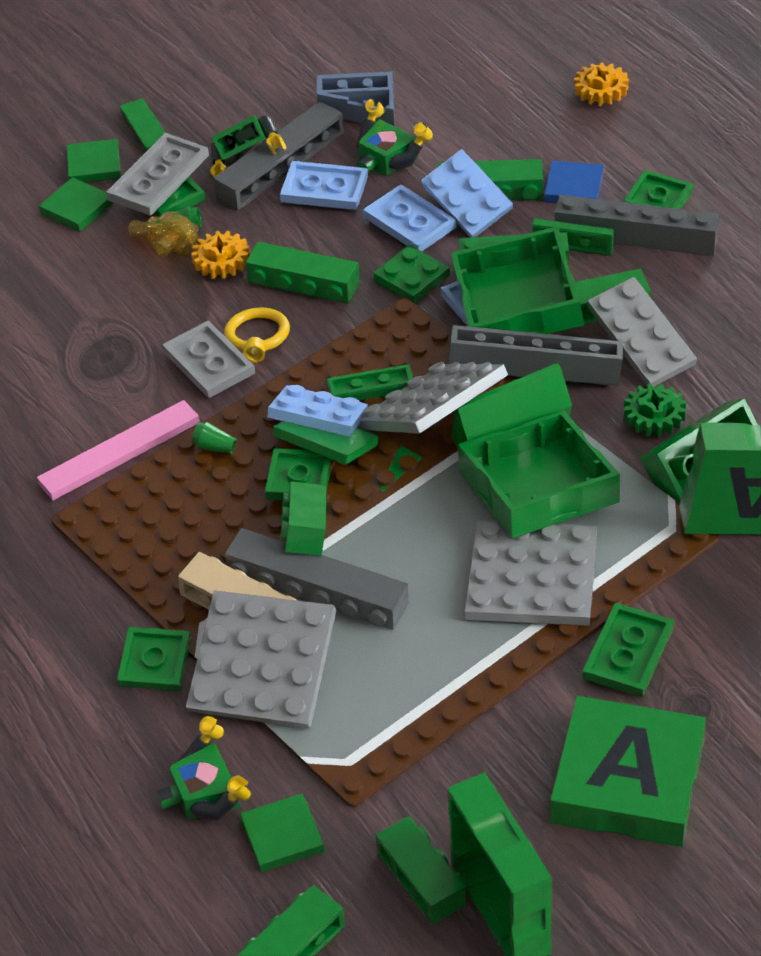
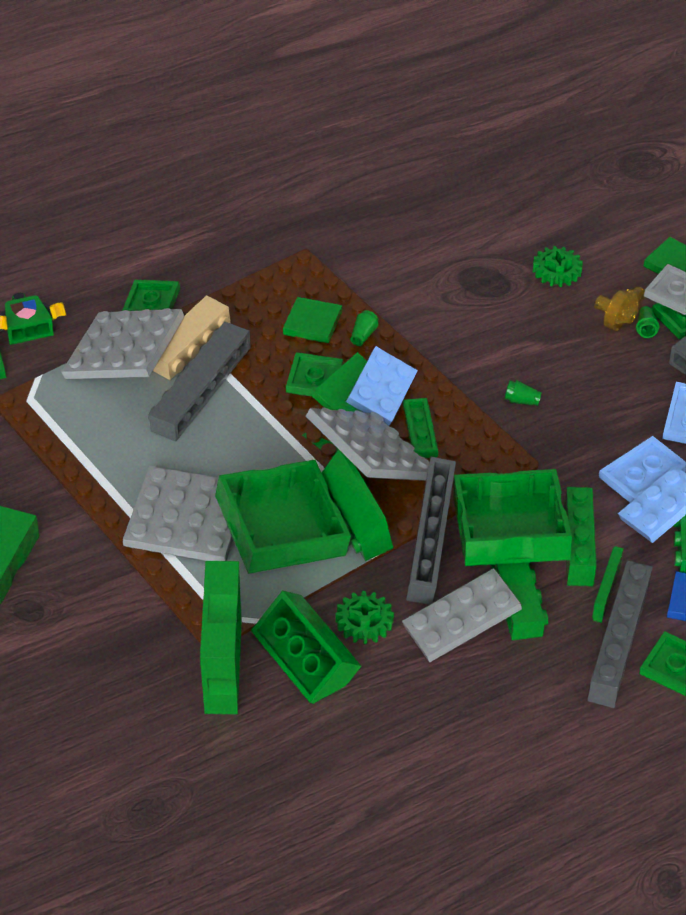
camera: 90 degrees right, 0 degrees up
(92, 289) = (557, 266): none -> green gear
(118, 450) = (374, 285): bright pink tile -> none
(194, 491) = (312, 320): none -> green tile
(208, 359) = (467, 334): light grey plate -> none
(220, 254) = (597, 343): light orange gear -> none
(255, 348) = (478, 360): yellow piece -> none
(303, 272) = (568, 394): green brick -> none
(303, 311) = (522, 394): none -> green cone
(304, 518) = (251, 366): green brick -> none
(411, 274) = (572, 467): green plate -> none
(628, 649) = (92, 568): green plate -> none

